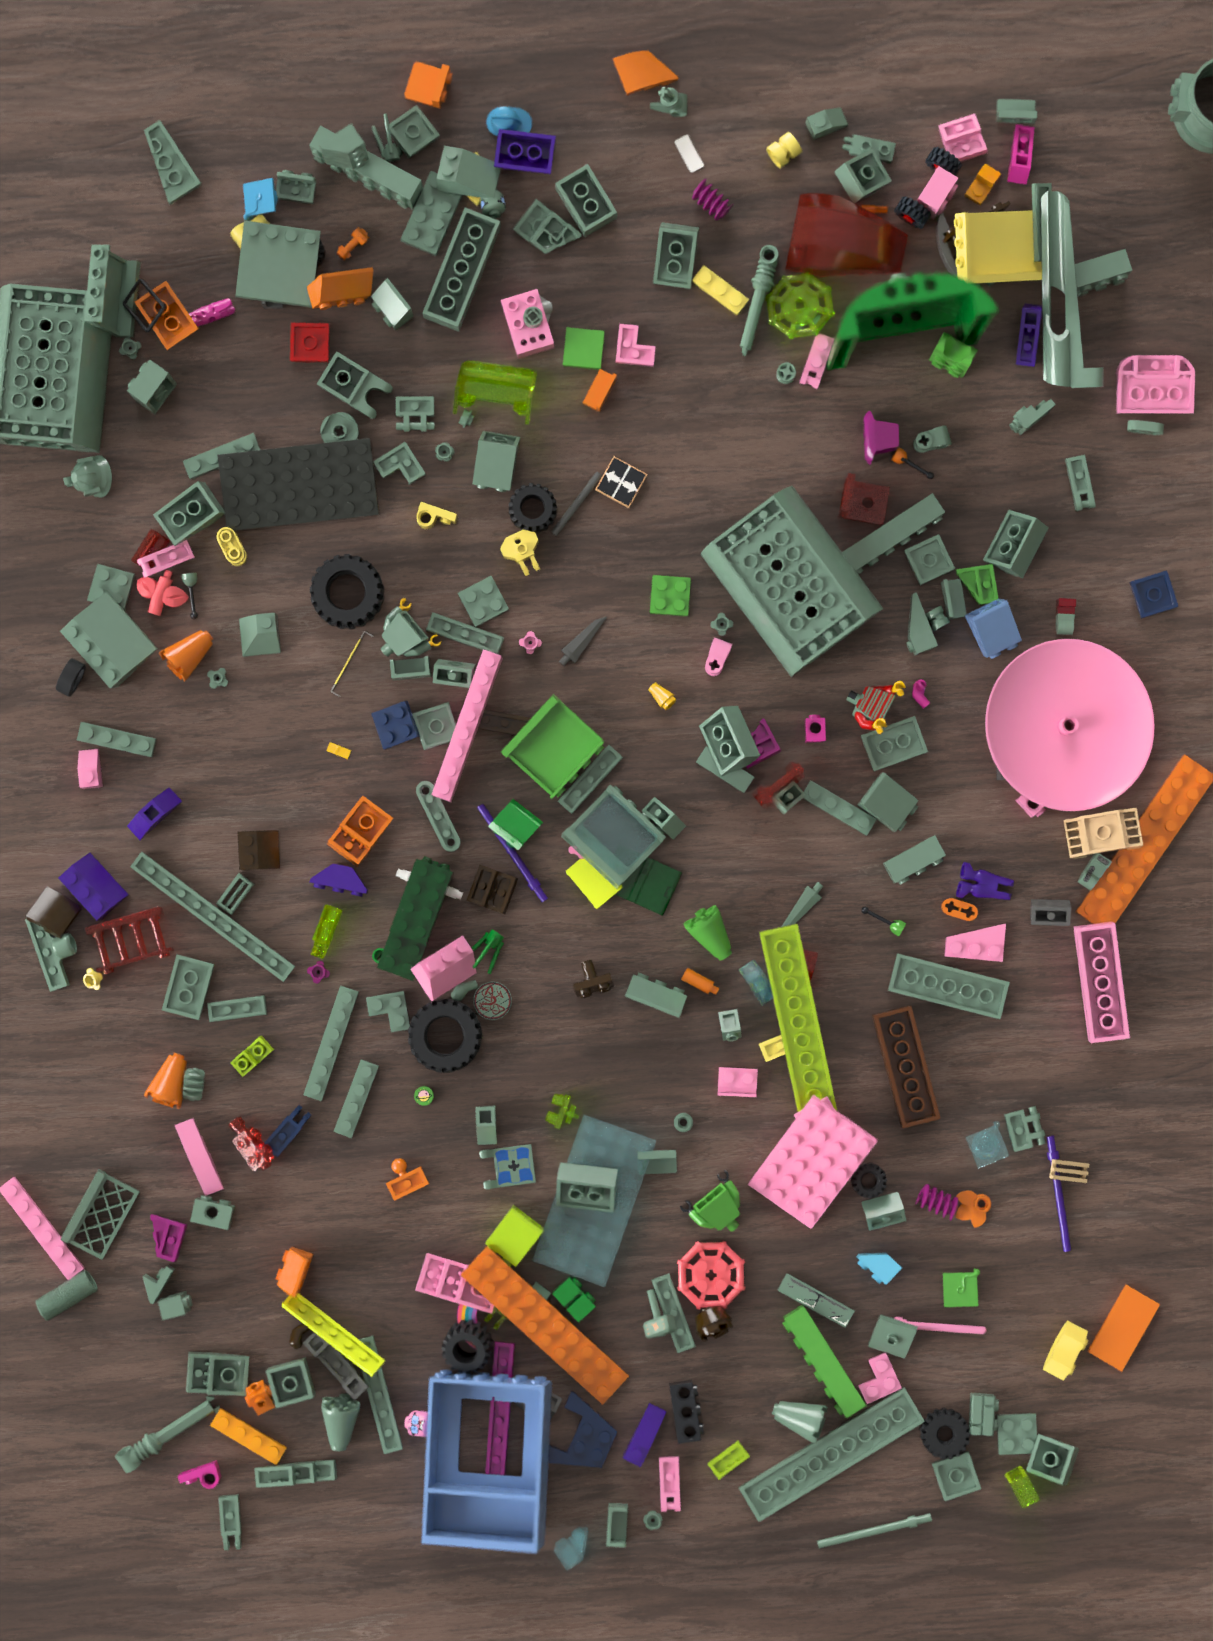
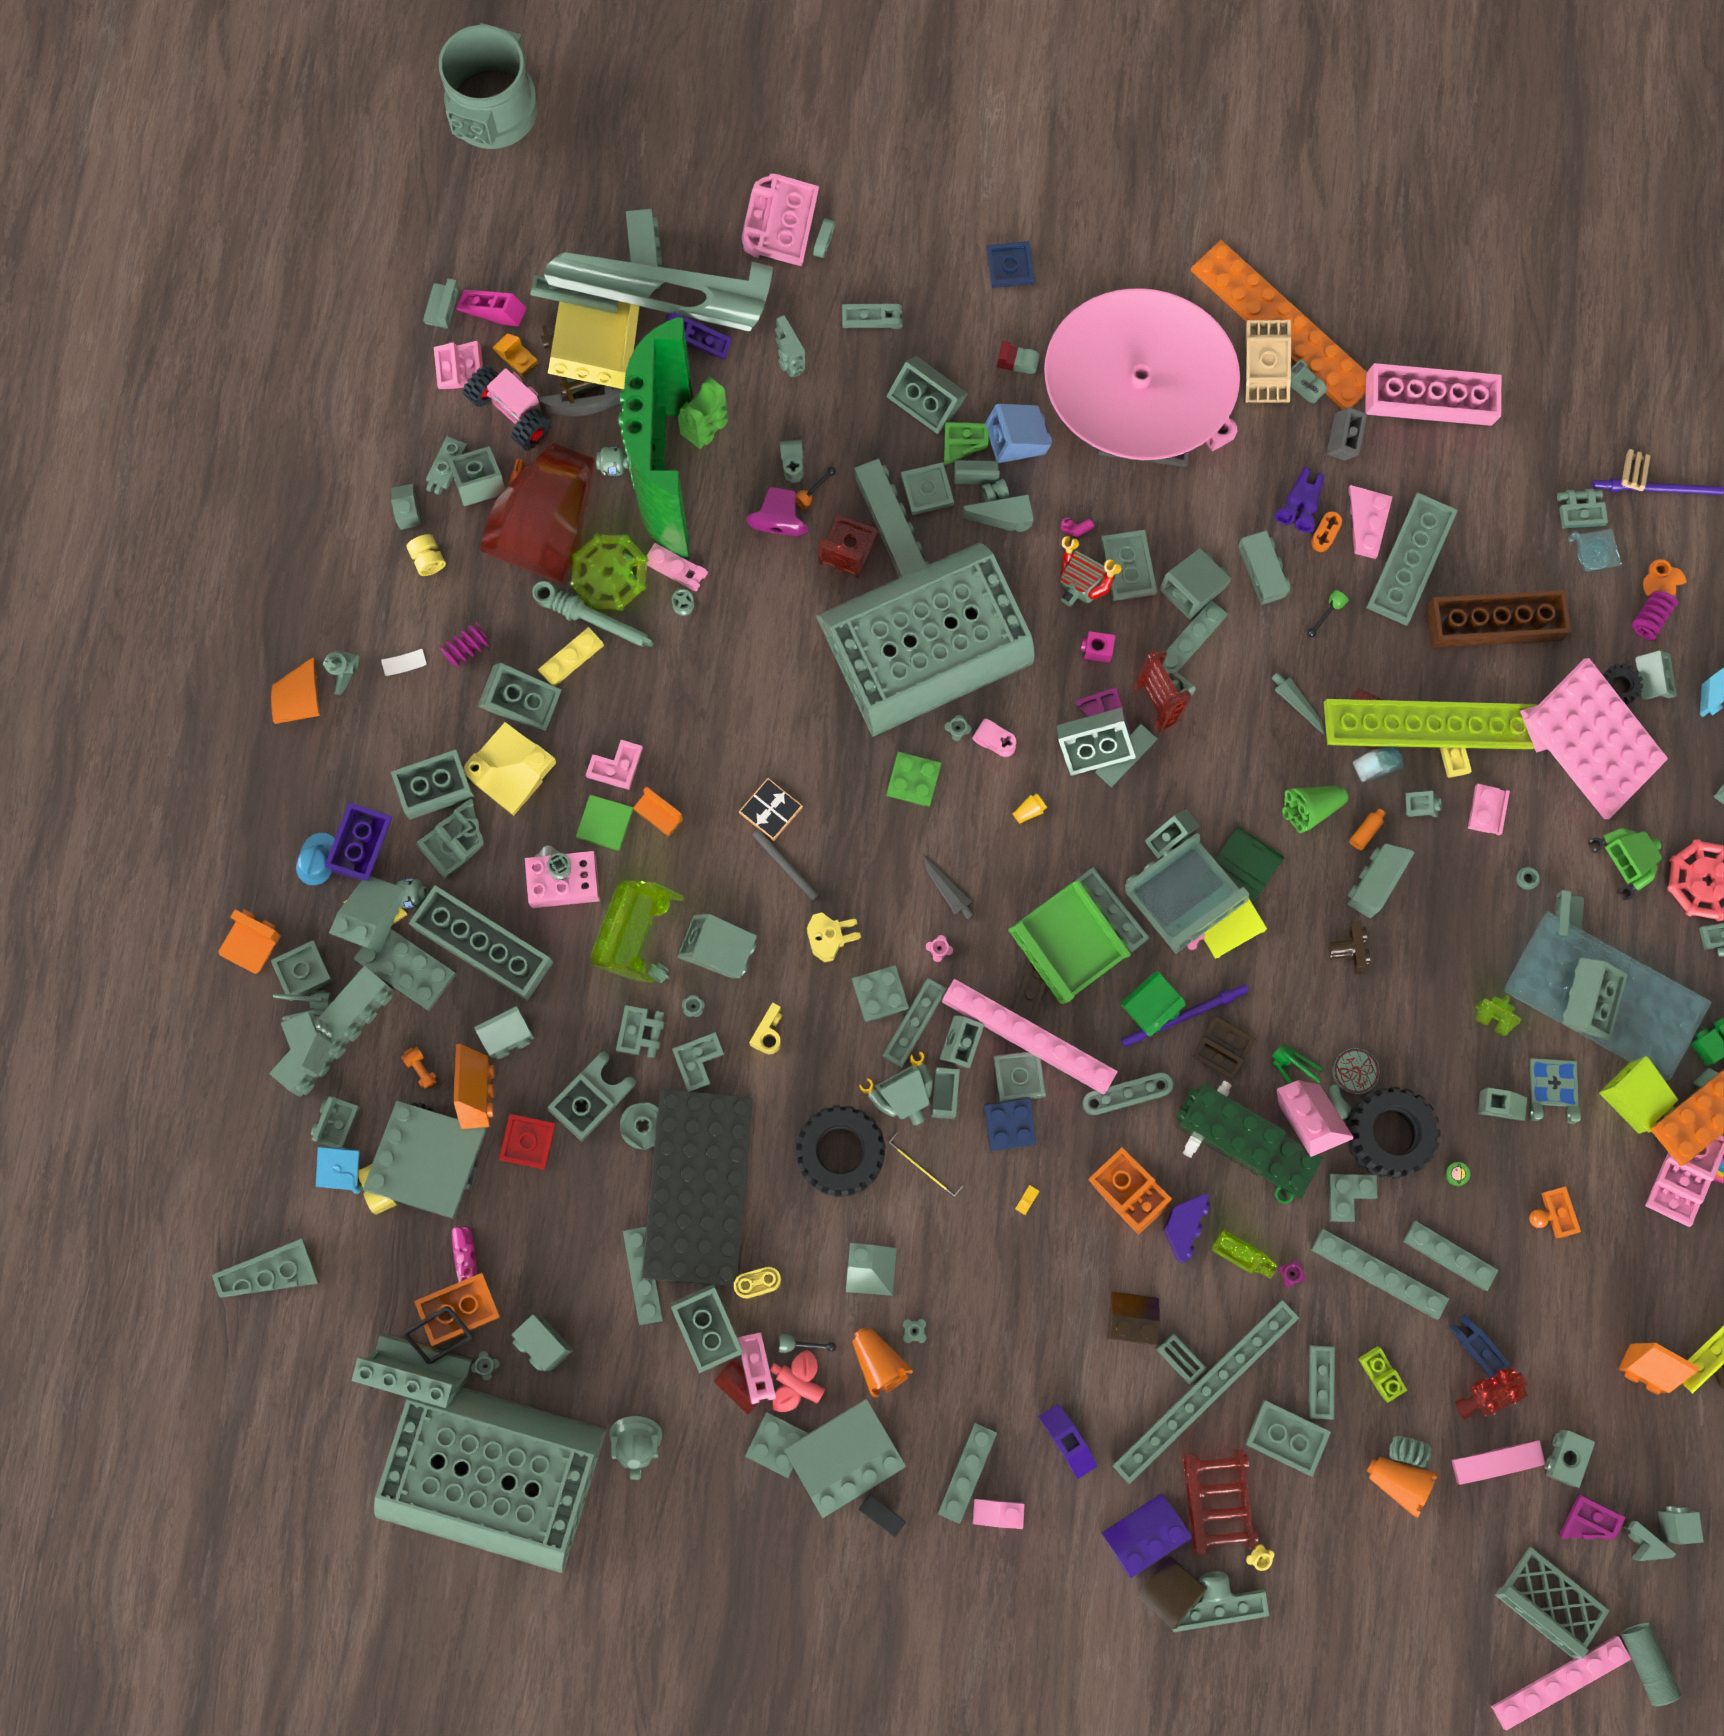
camera: 85 degrees left, 10 degrees down
(529, 492) = (778, 895): black tyre -> none
(614, 260) = (509, 768): none -> light yellow slope

